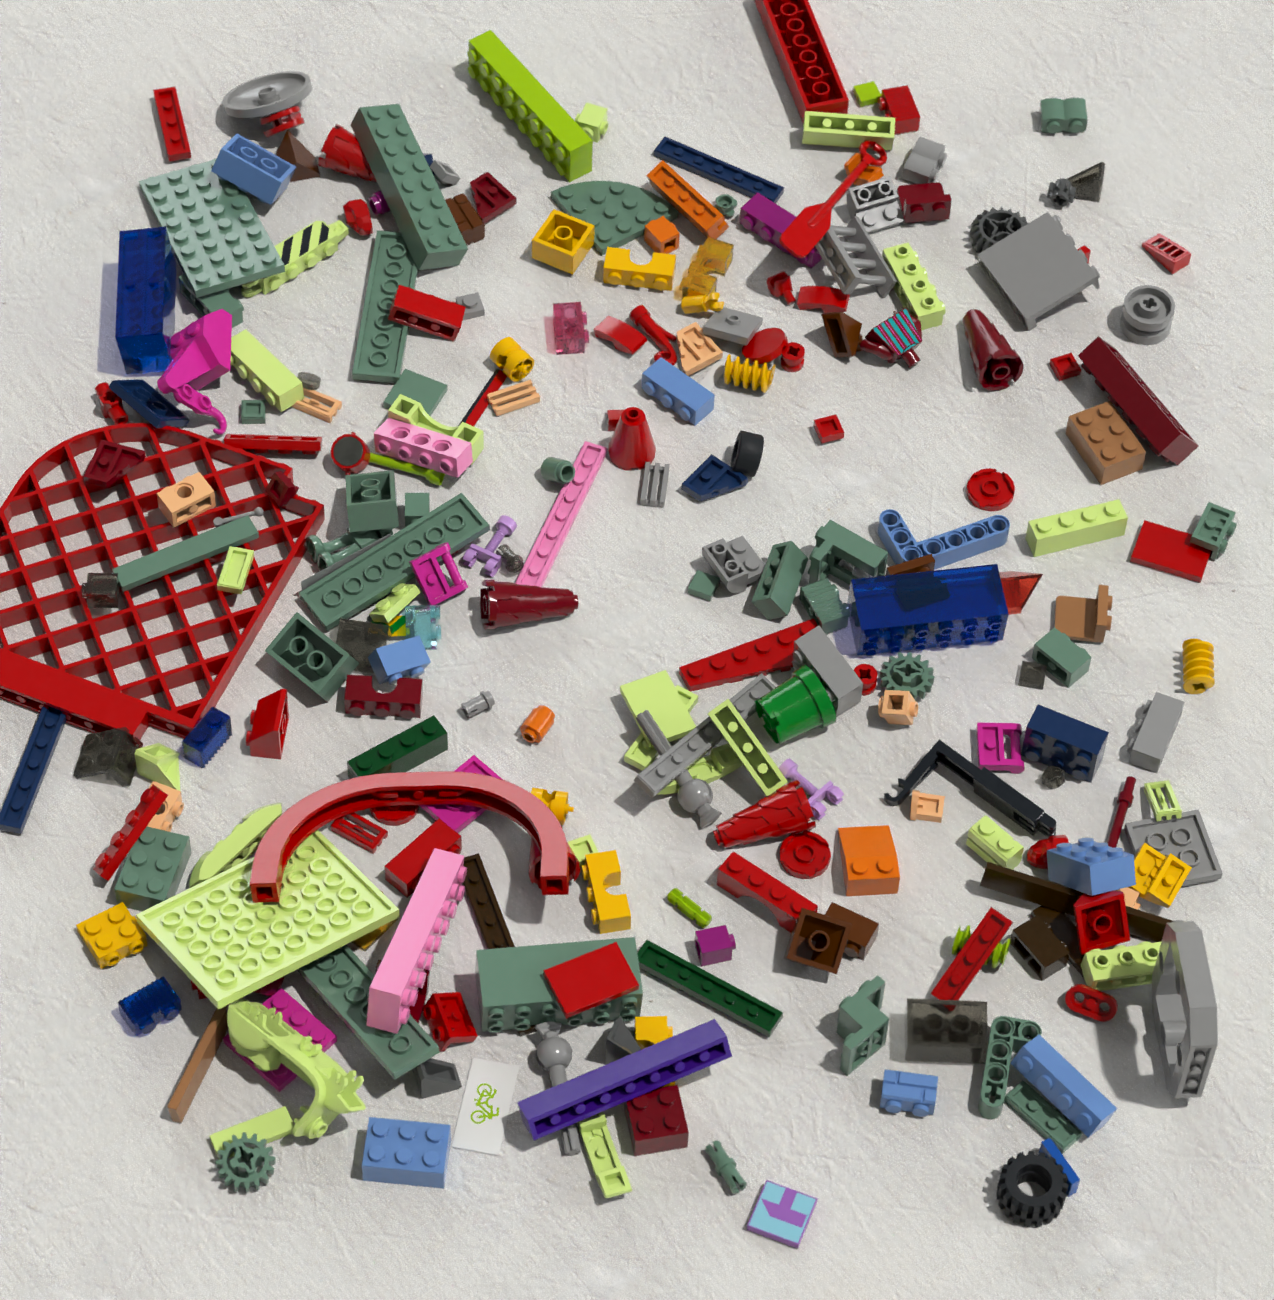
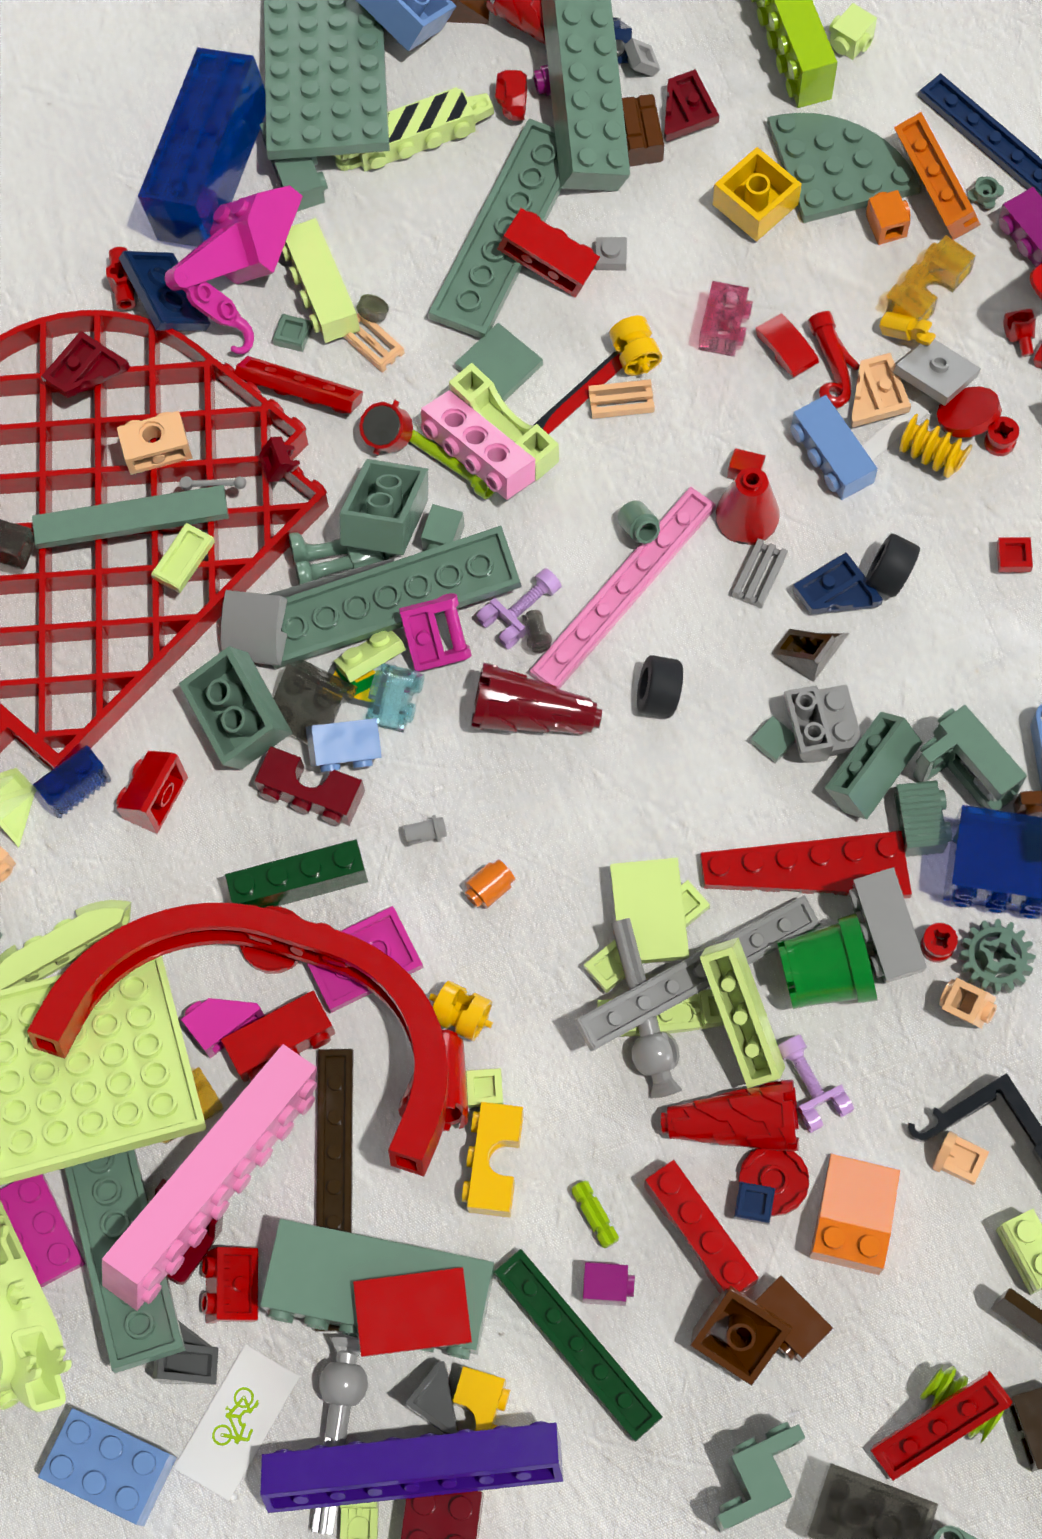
camera: 25 degrees right, 15 degrees up
(307, 597) = (254, 625): none -> light grey slope
(370, 842) = (233, 989): red tile -> none
(375, 855) = (217, 1019): none -> dark pink slope
(612, 569) = (659, 686): none -> black tyre
(656, 274) = (861, 270): yellow arch -> none
(707, 523) = (808, 651): none -> dark brown slope
(797, 868) = (754, 1203): none -> dark blue tile

